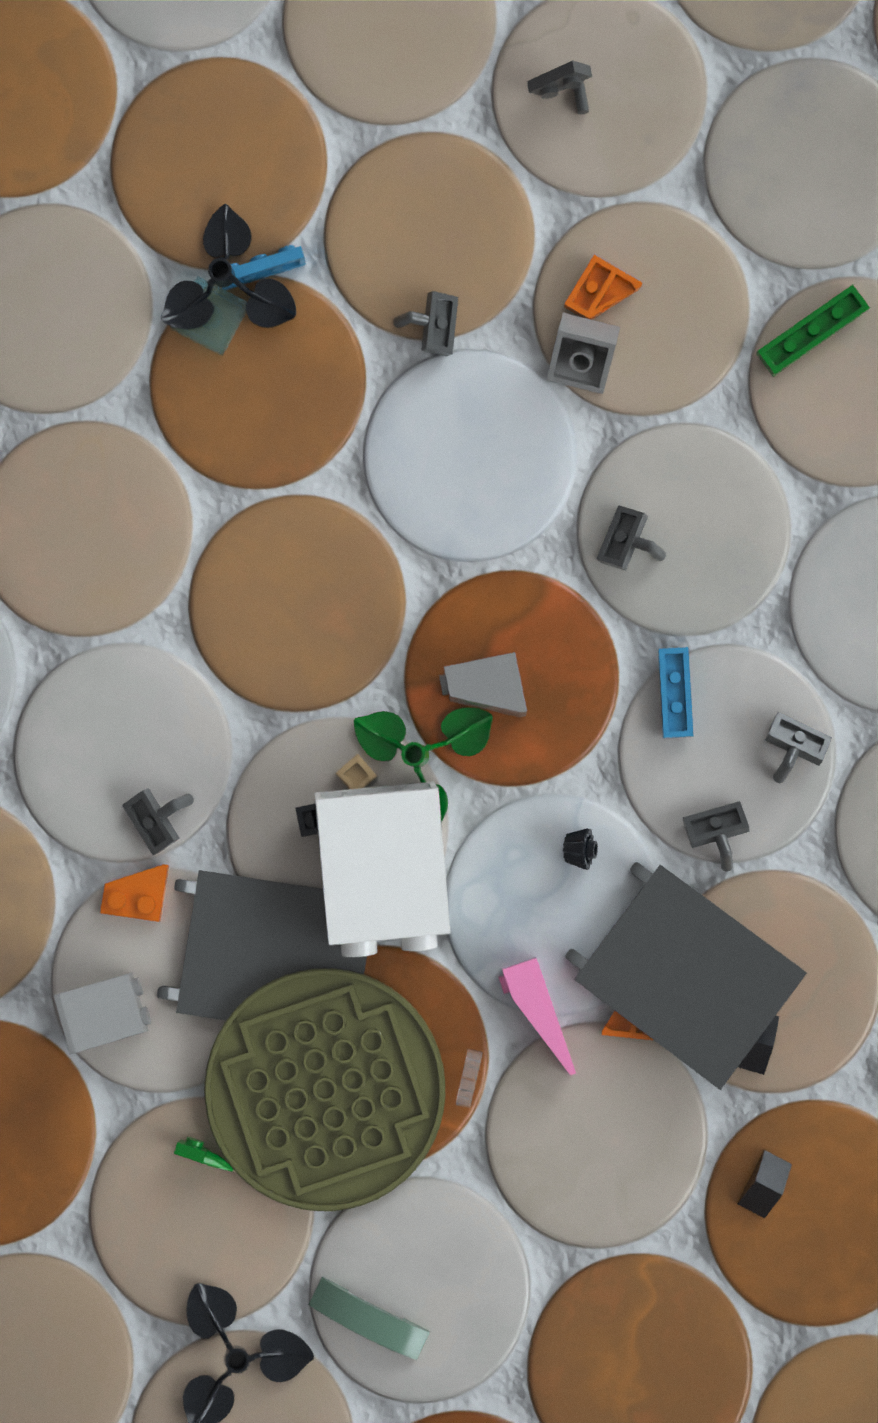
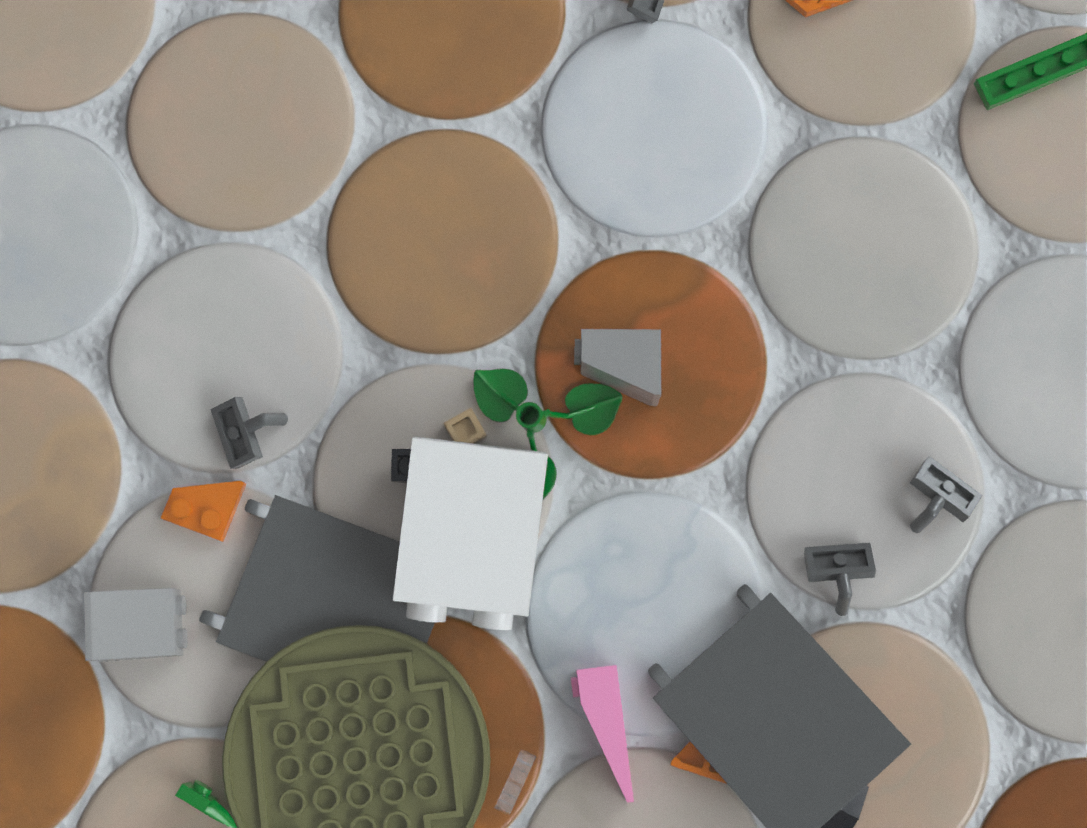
camera: 10 degrees right, 5 degrees down
(580, 848) = (687, 557): black piece -> none
(583, 353) = (793, 46): light grey slope -> none
(625, 537) = (799, 240): dark grey plate -> none
(675, 692) = (822, 413): dark azure plate -> none

